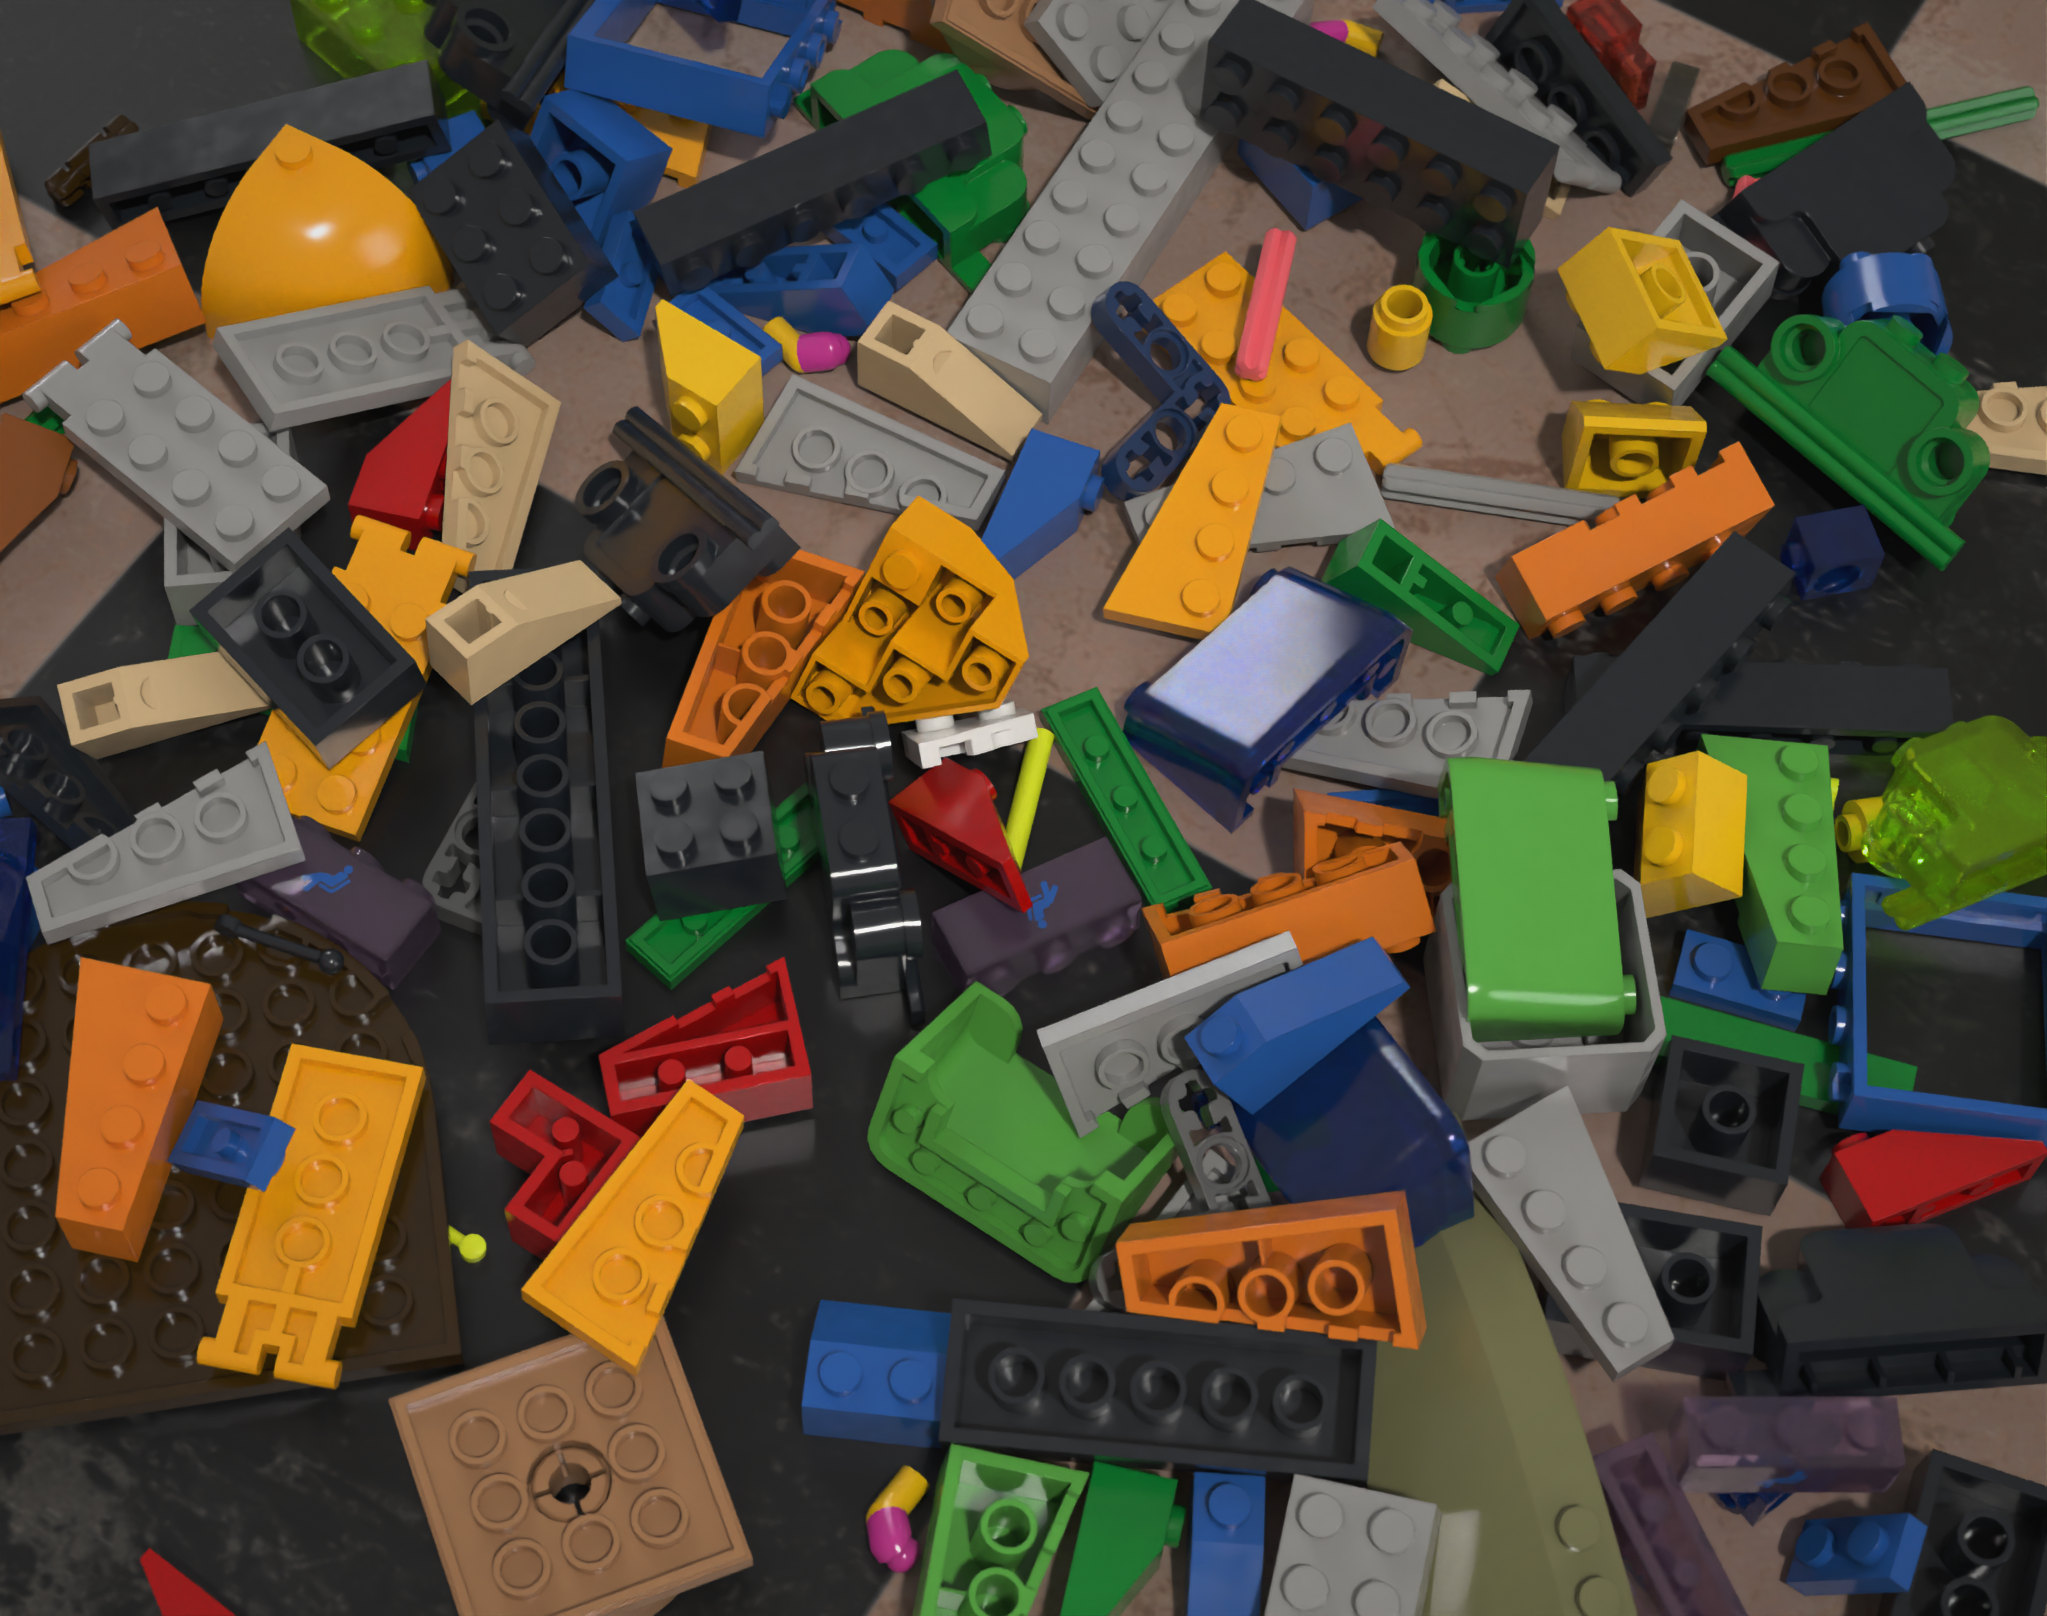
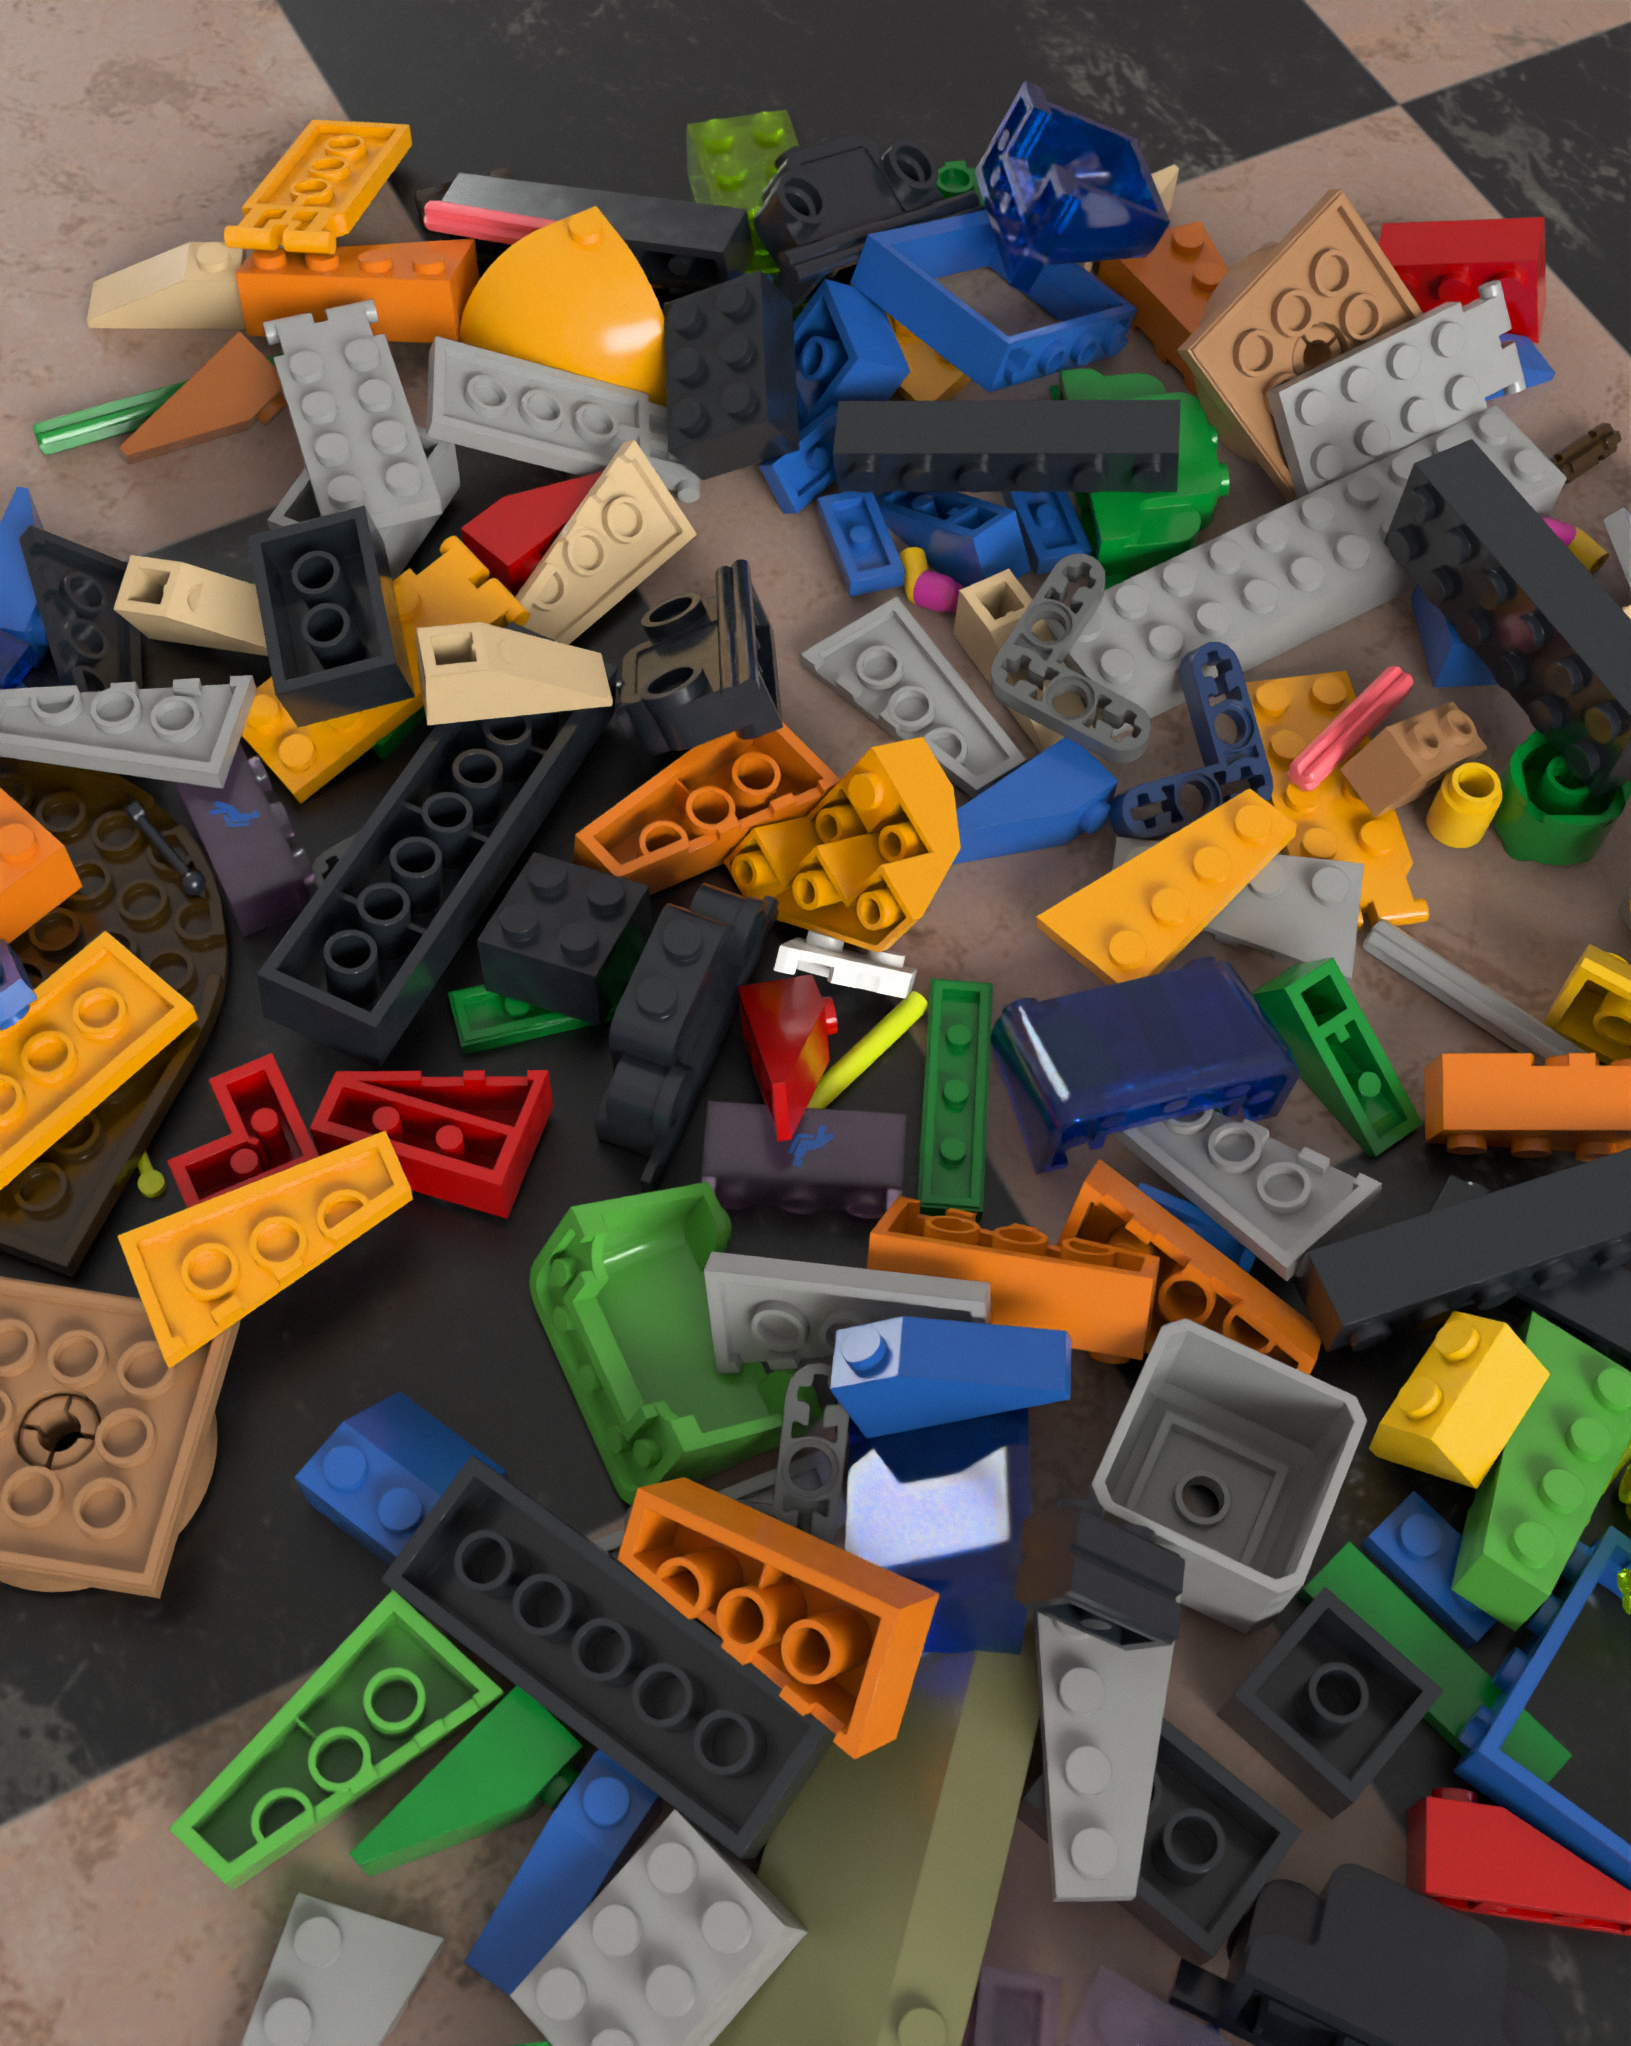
camera: 30 degrees right, 0 degrees up
(169, 185) = (480, 222): none -> coral axle
(708, 387) = (810, 572): yellow slope -> none
(889, 1523) = (318, 1626): dark pink arm -> none
(974, 375) = (1044, 663): none -> dark grey beam
(1336, 306) = (1412, 757): none -> medium nougat brick
(1516, 1109) = (1100, 1576): none -> black brick
(1535, 898) = (1250, 1379): bright green windscreen -> none

